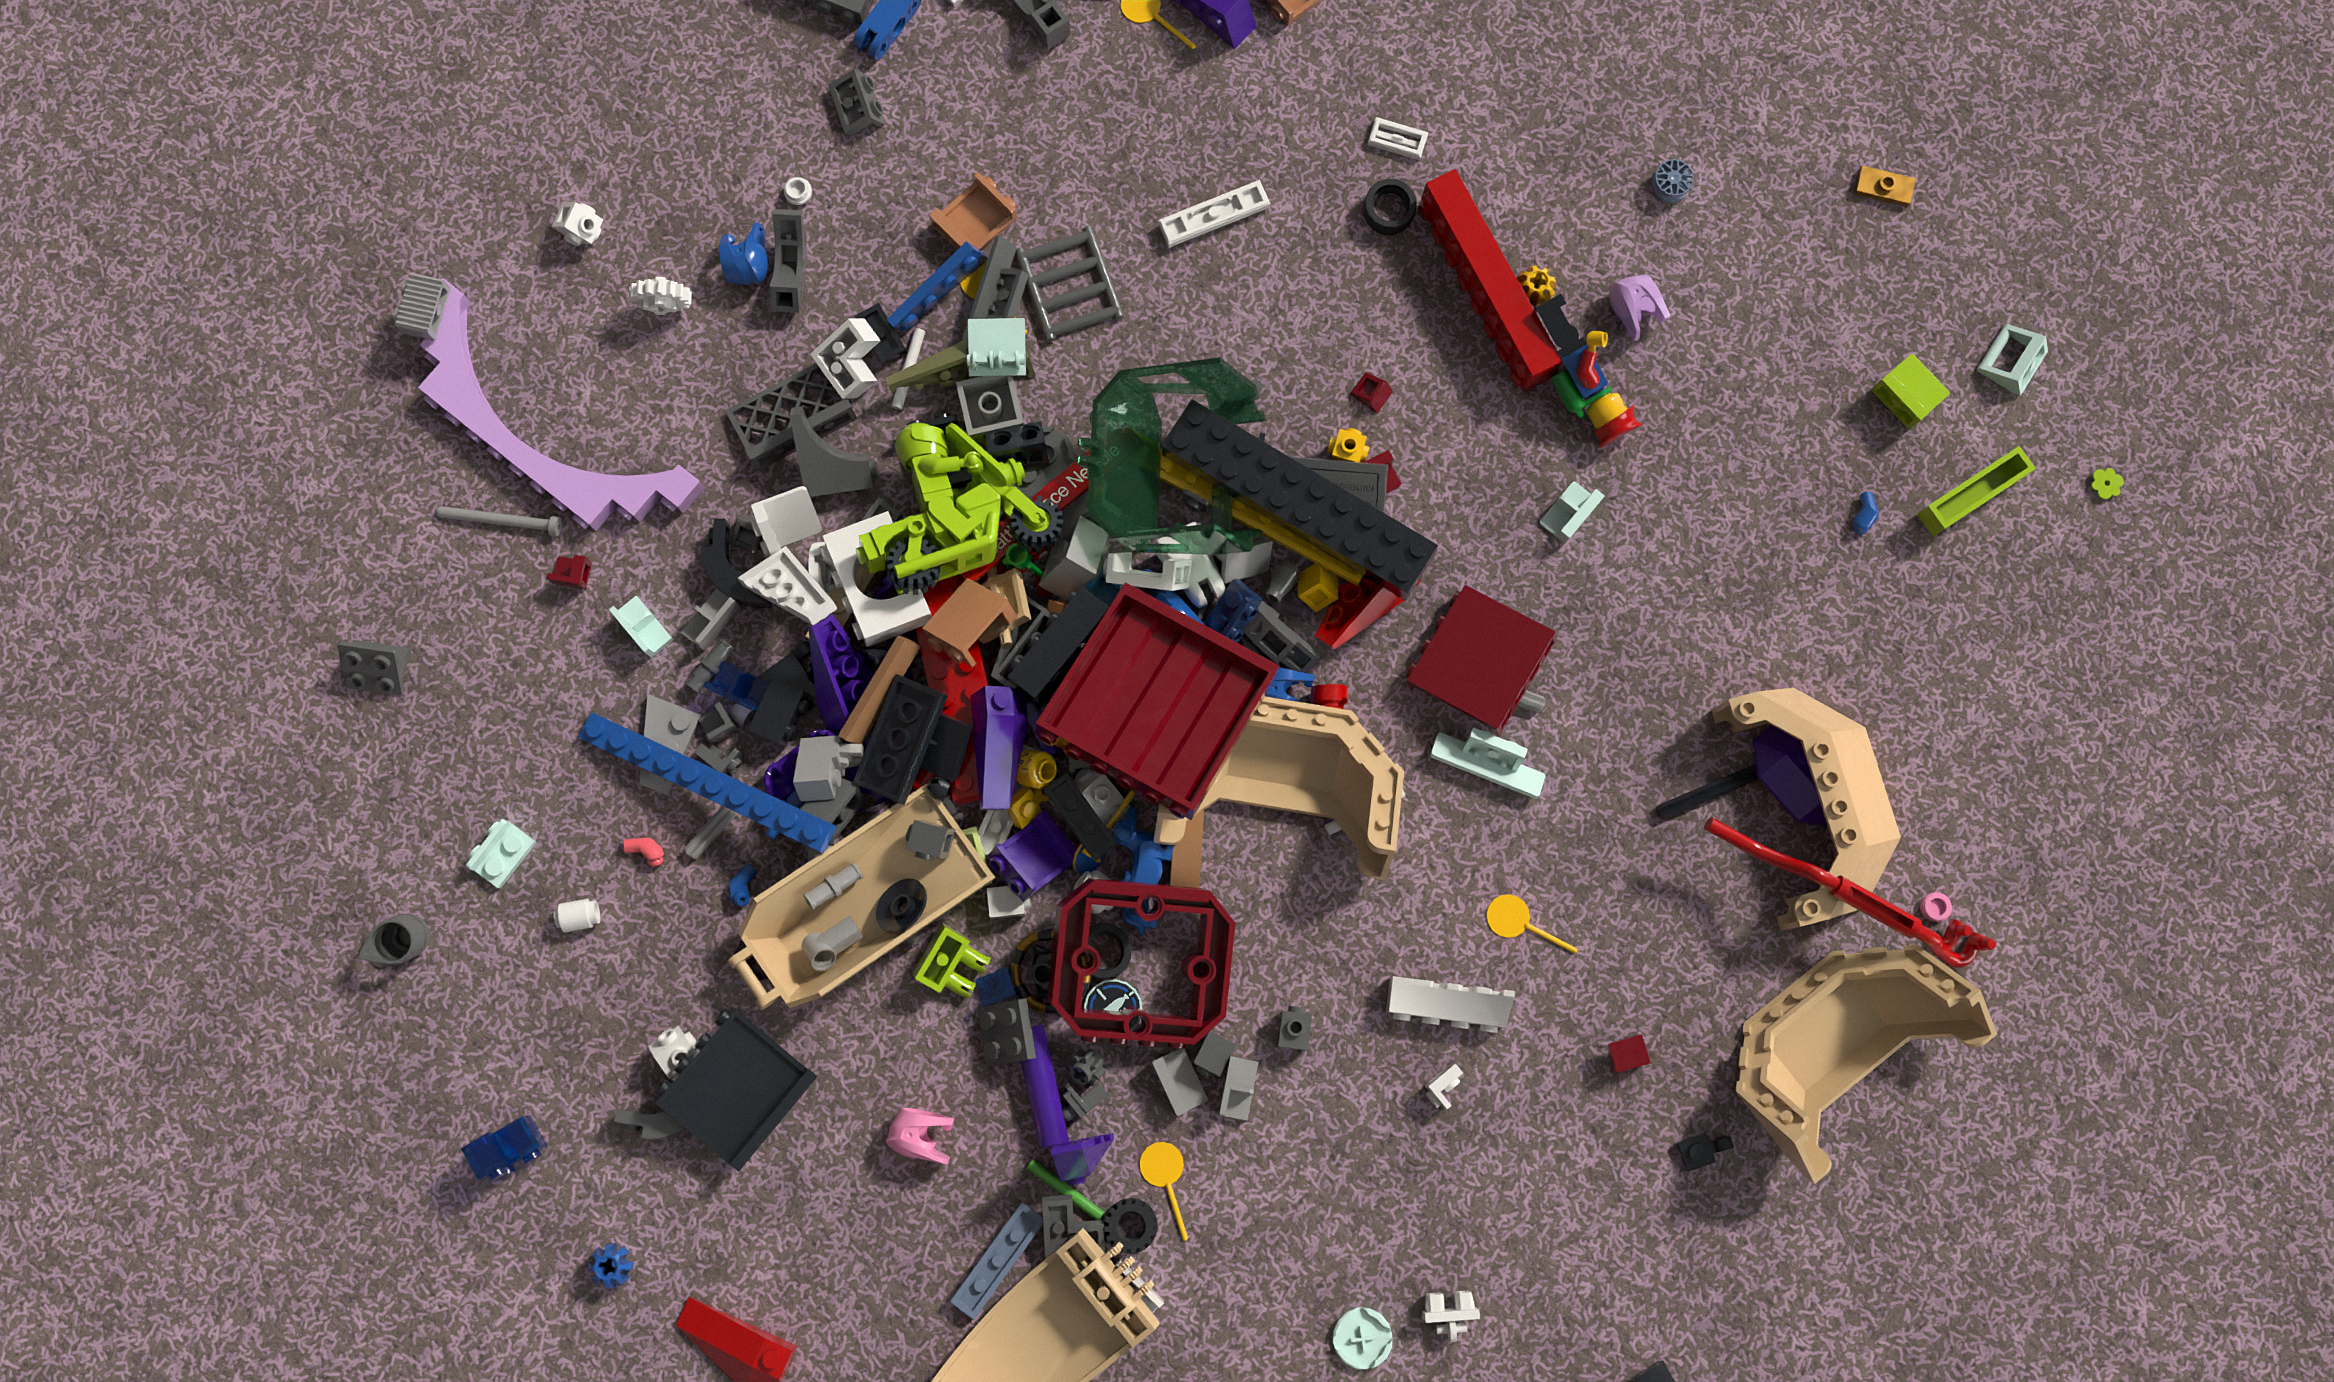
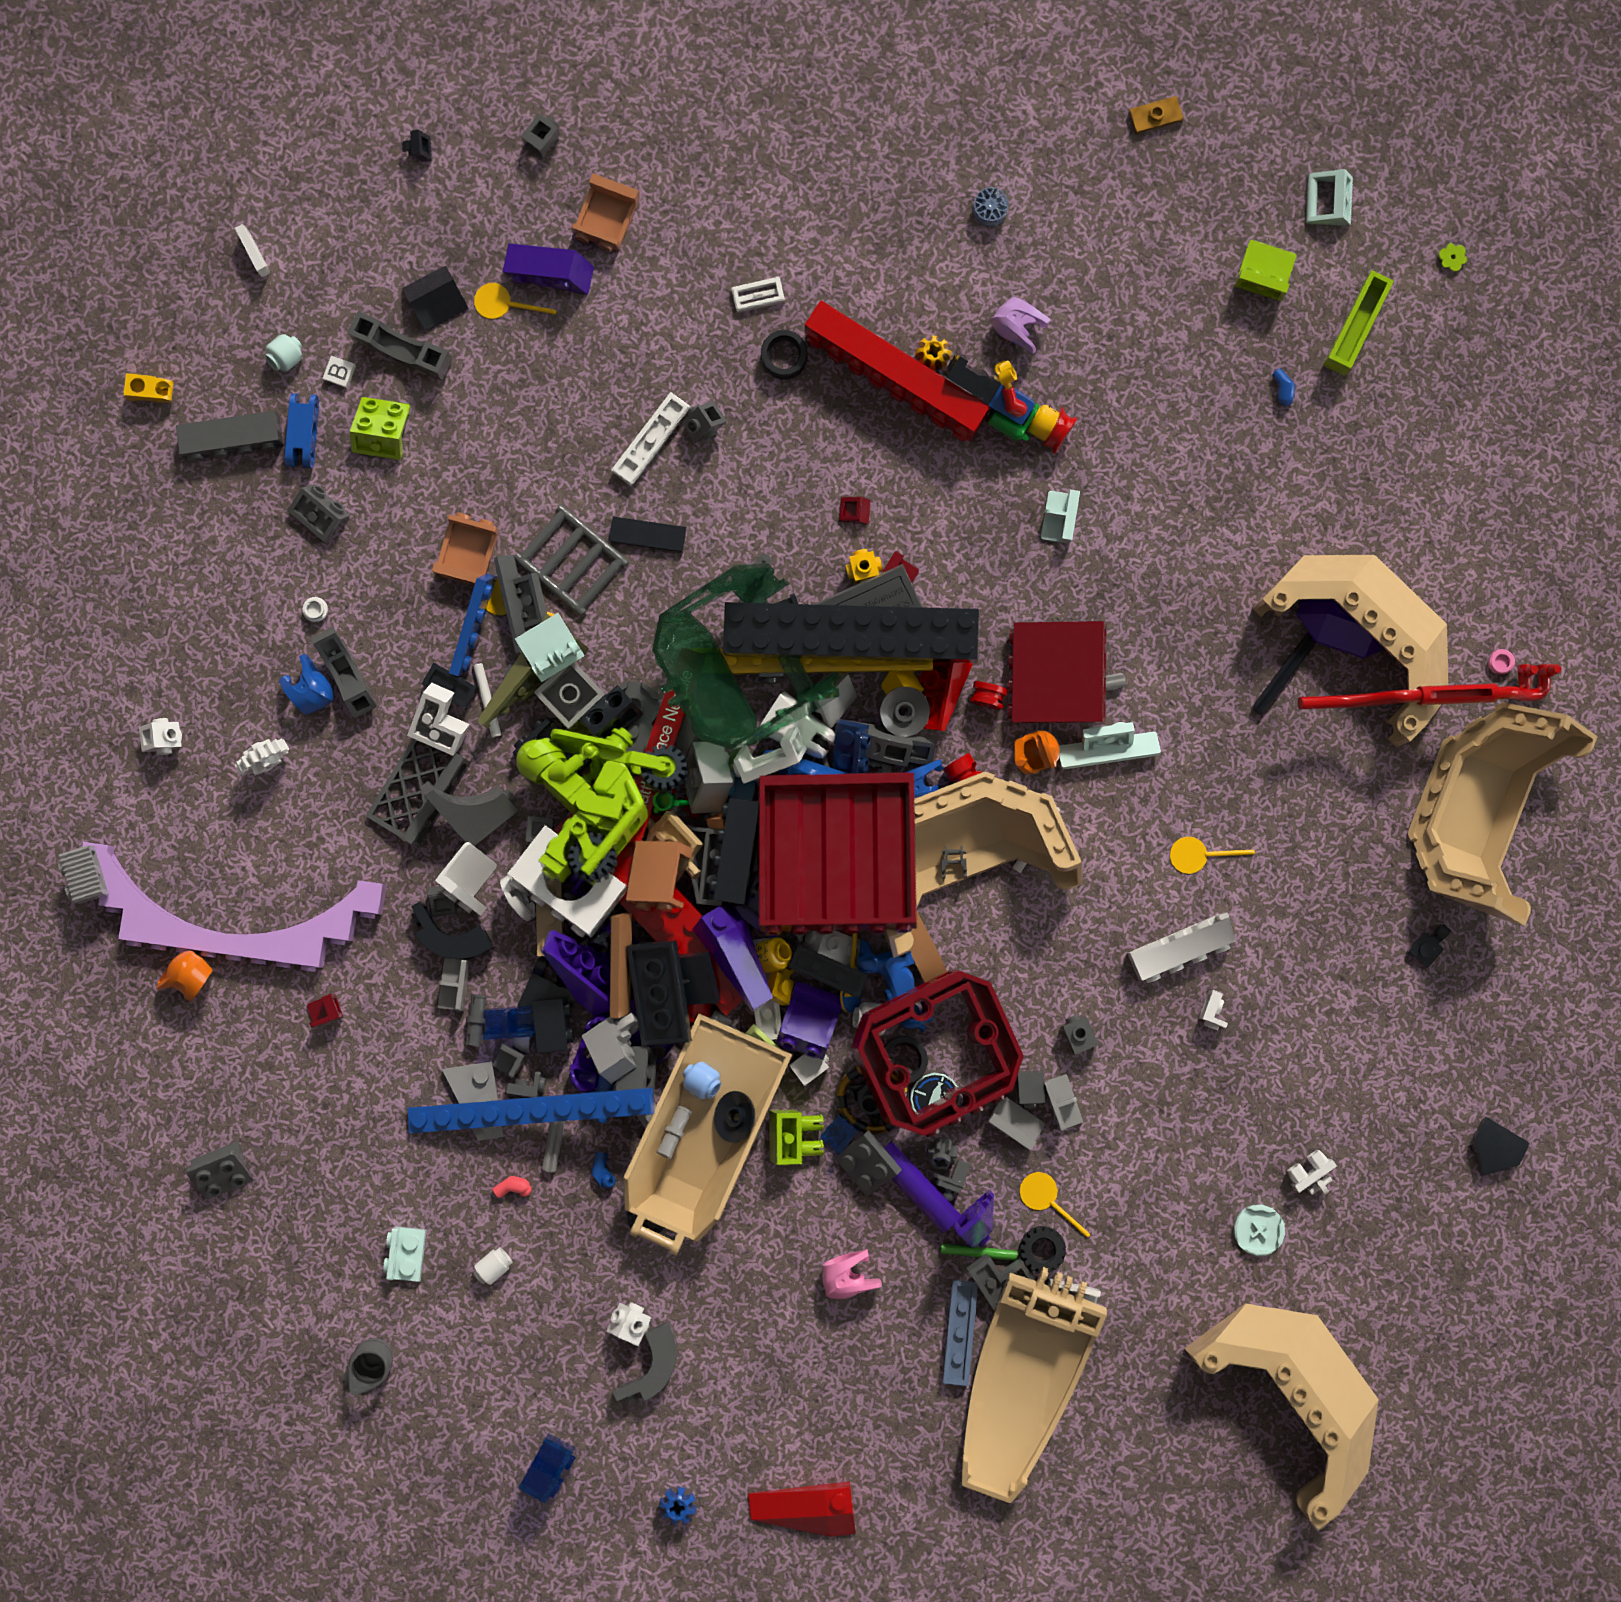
camera: 25 degrees left, 5 degrees up
(461, 459) = (185, 973): none -> orange helmet
(553, 525) = (287, 983): light grey bar -> none
(642, 626) = (405, 1020): light aqua panel -> none
(734, 1088) = (691, 1324): black panel -> none
(789, 586) = (505, 927): white wing -> none
(823, 947) = (695, 1182): light grey piece -> none
(890, 850) = (701, 1080): none -> light blue head
(929, 839) = (726, 1055): dark grey brick -> none
(938, 788) = (709, 1013): black hinge -> none
(959, 58) = (379, 428): none -> lime bracket
(1157, 301) = (648, 534): none -> black tile
(1261, 779) = (963, 861): none -> dark grey piece
(1274, 224) = (704, 422): none -> dark grey brick
(1283, 579) = (872, 697): dark grey cone -> none
(1316, 619) = (915, 717): none -> dark grey dish
(1398, 641) = (988, 695): none -> red wheel
(1419, 724) = (1040, 751): none -> orange helmet
(1628, 1053) = (1335, 907): dark red panel -> none

